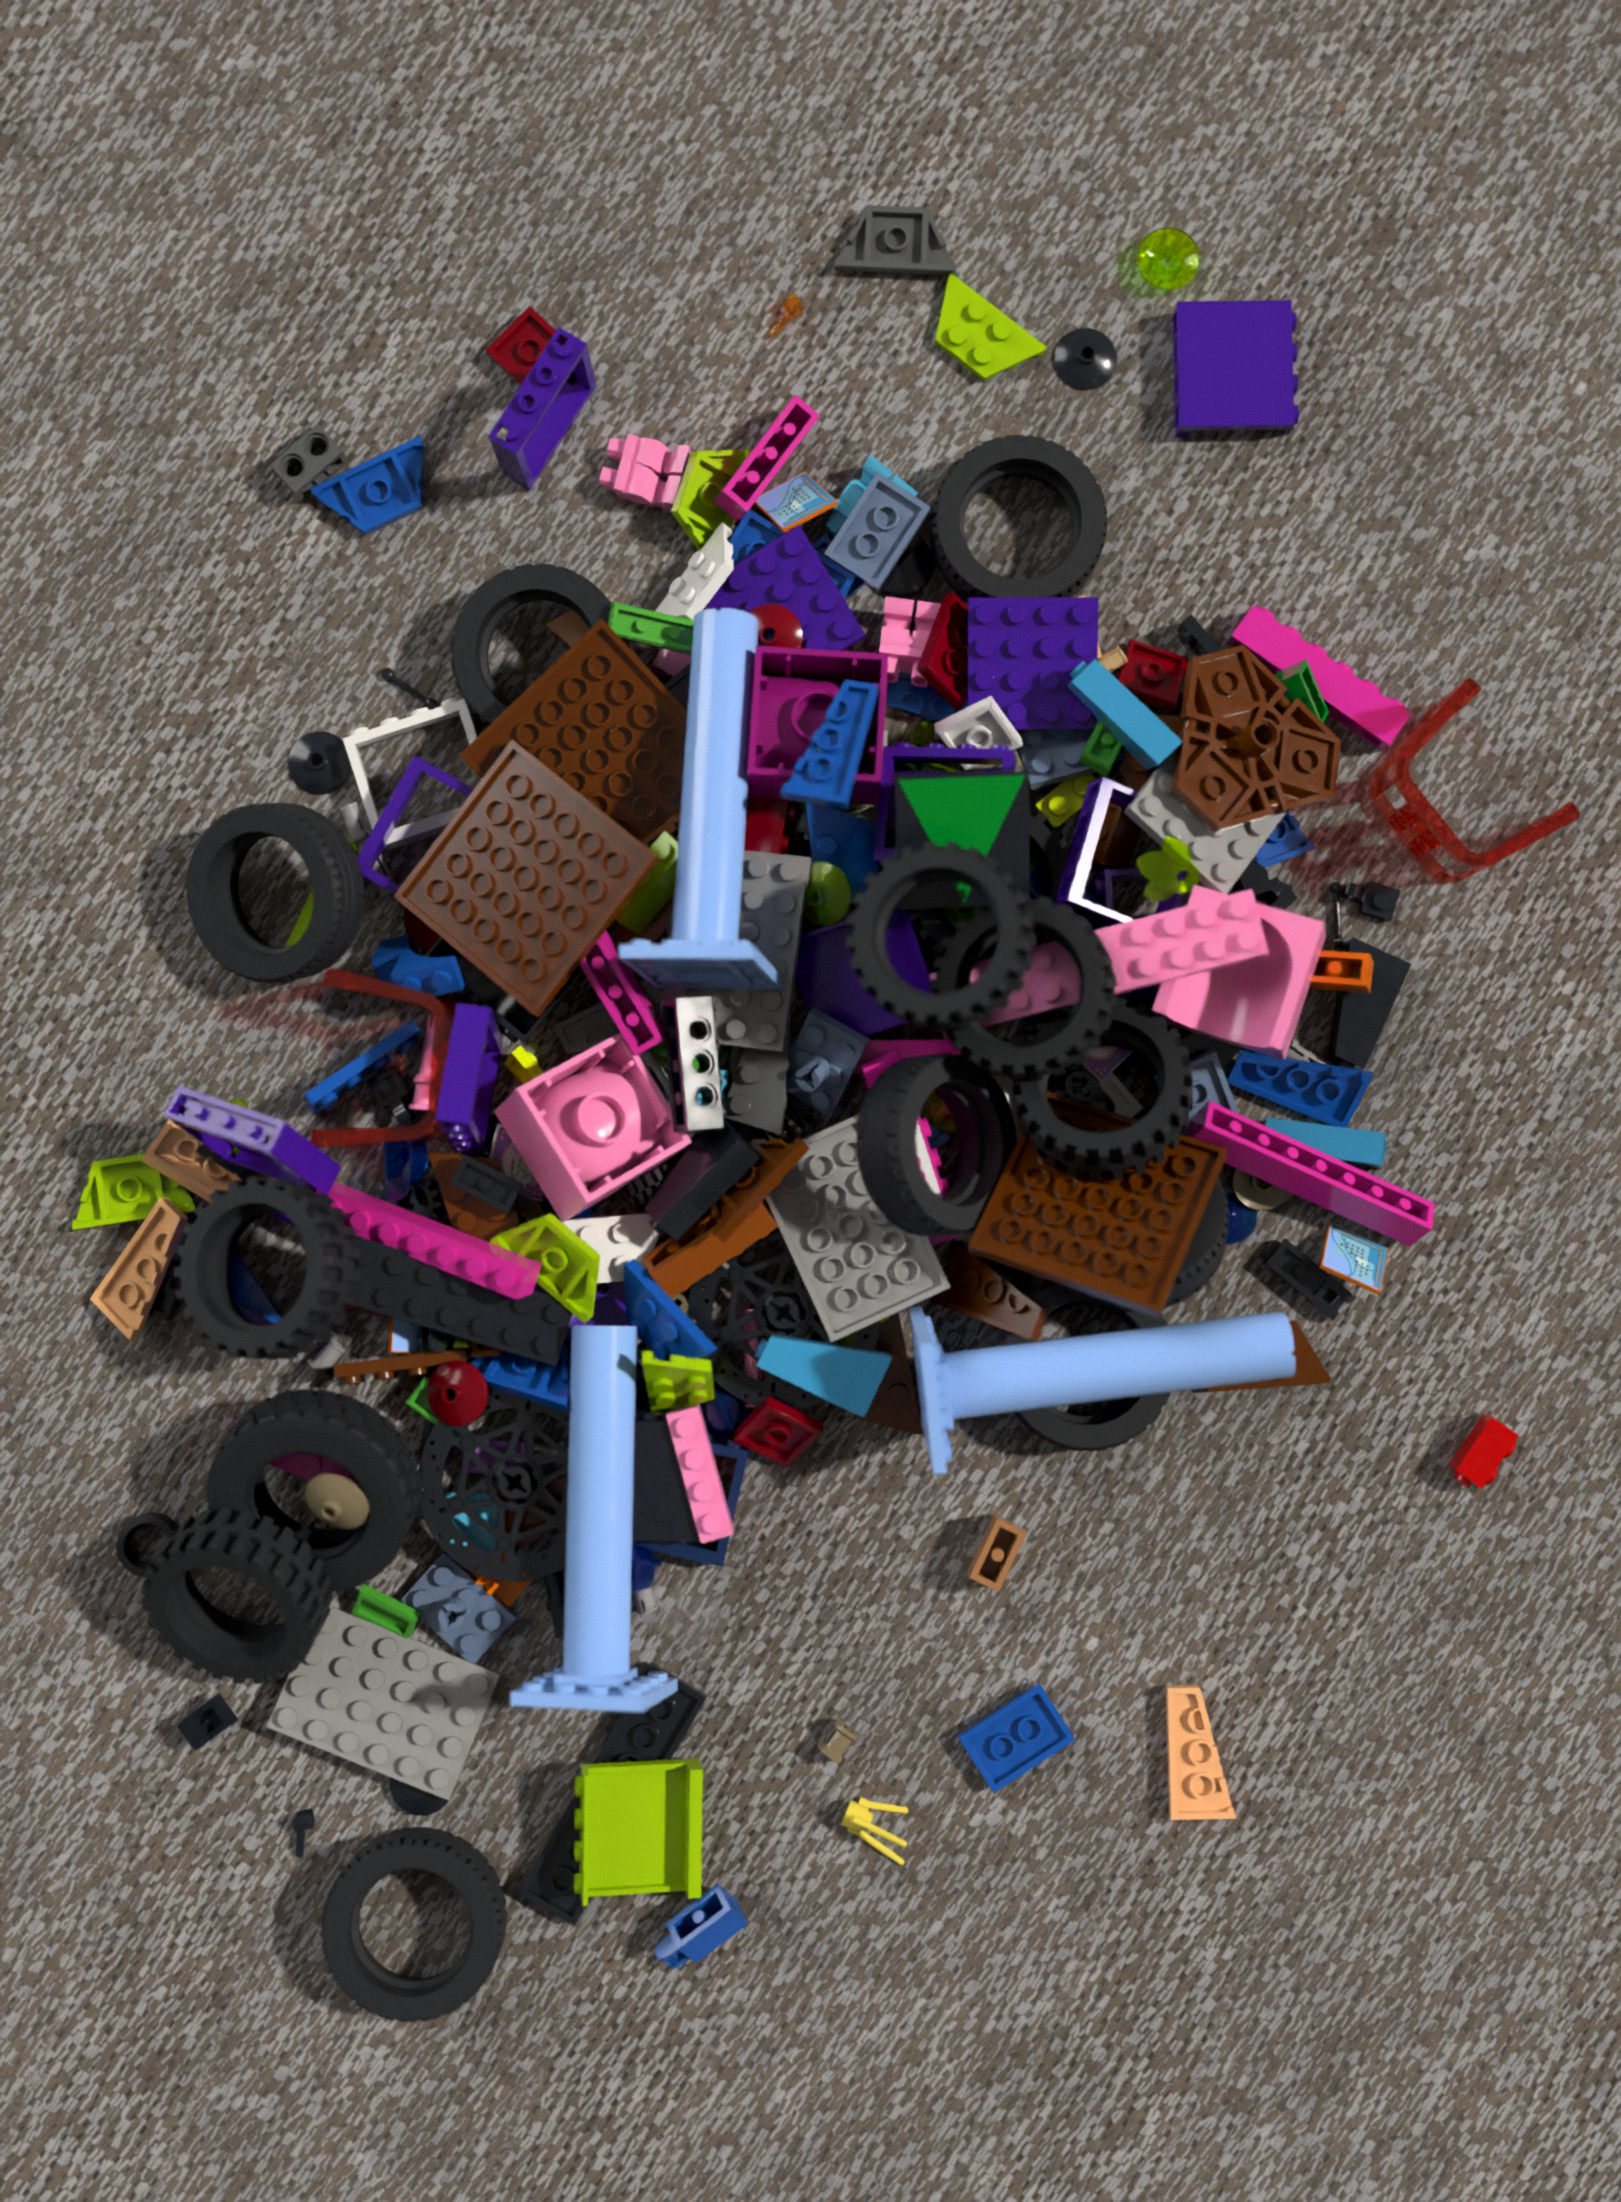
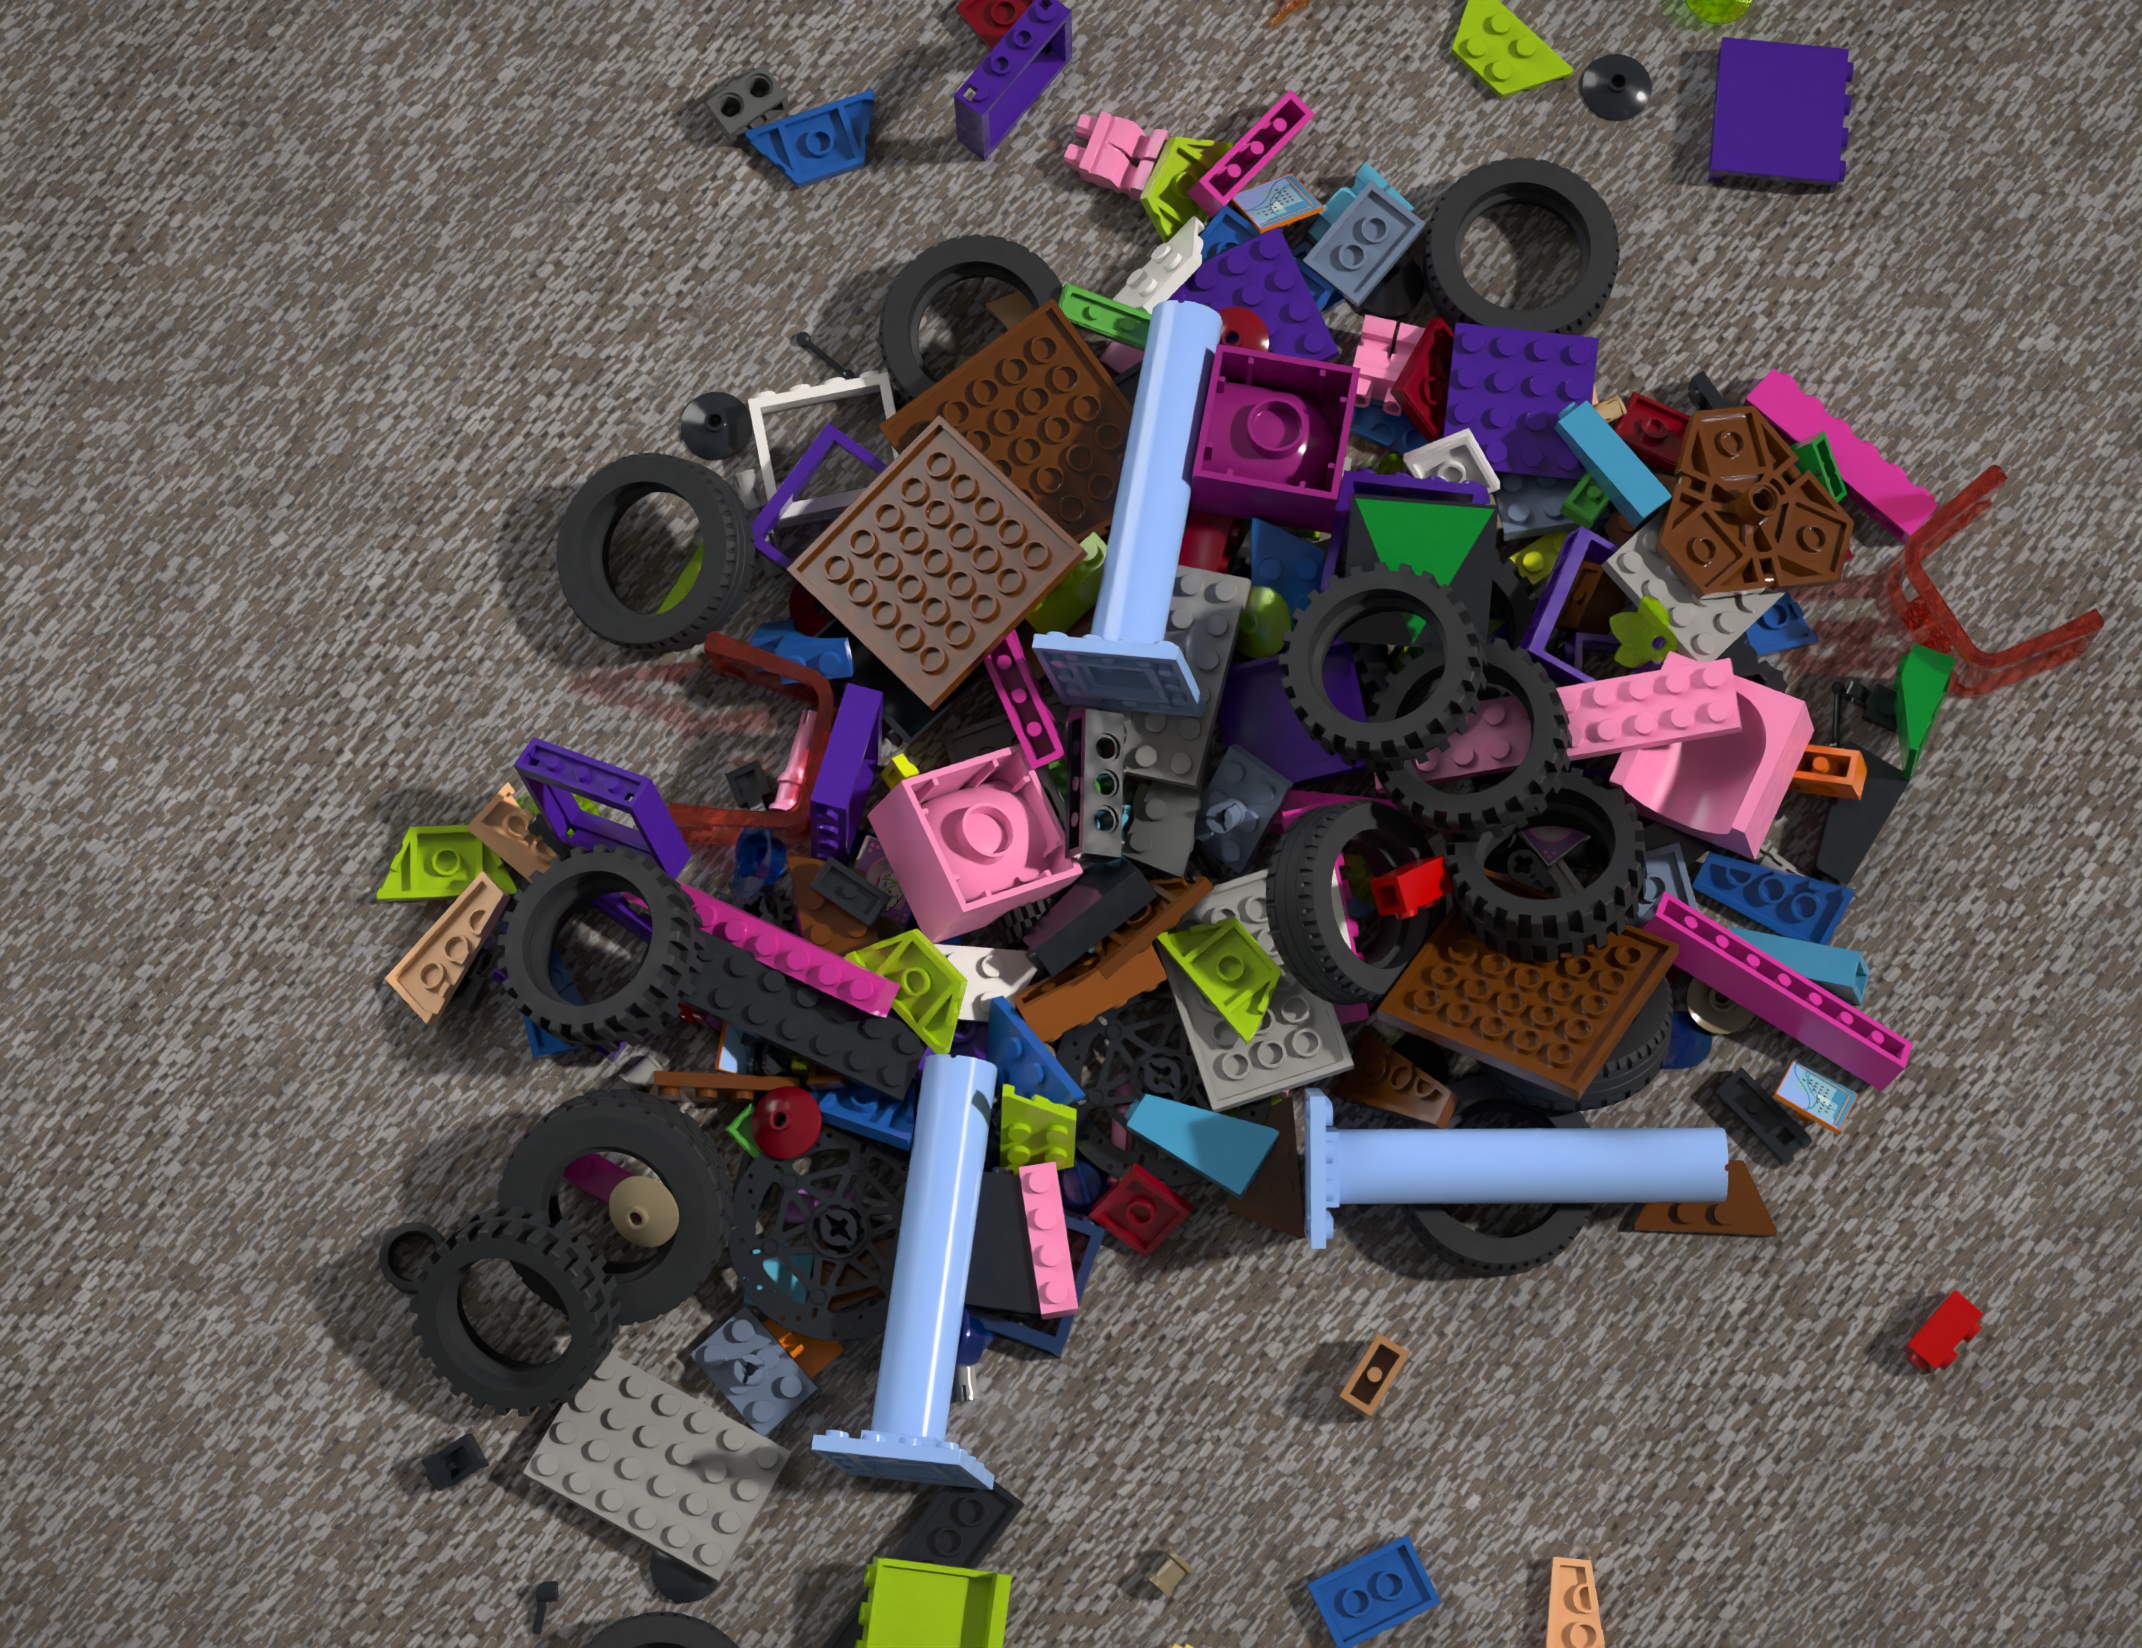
camera: 15 degrees right, 10 degrees down
(356, 1071) = (716, 760): blue wing -> none
(385, 1612) = (671, 1365): bright green tile -> none
(556, 1600) = (867, 1376): black pin -> none
(830, 1216) = (1227, 970): none -> lime wing
(832, 759) = (1290, 462): blue wing -> none
(986, 1128) = (1412, 887): none -> red brick
(1412, 899) = (1921, 689): none -> green slope

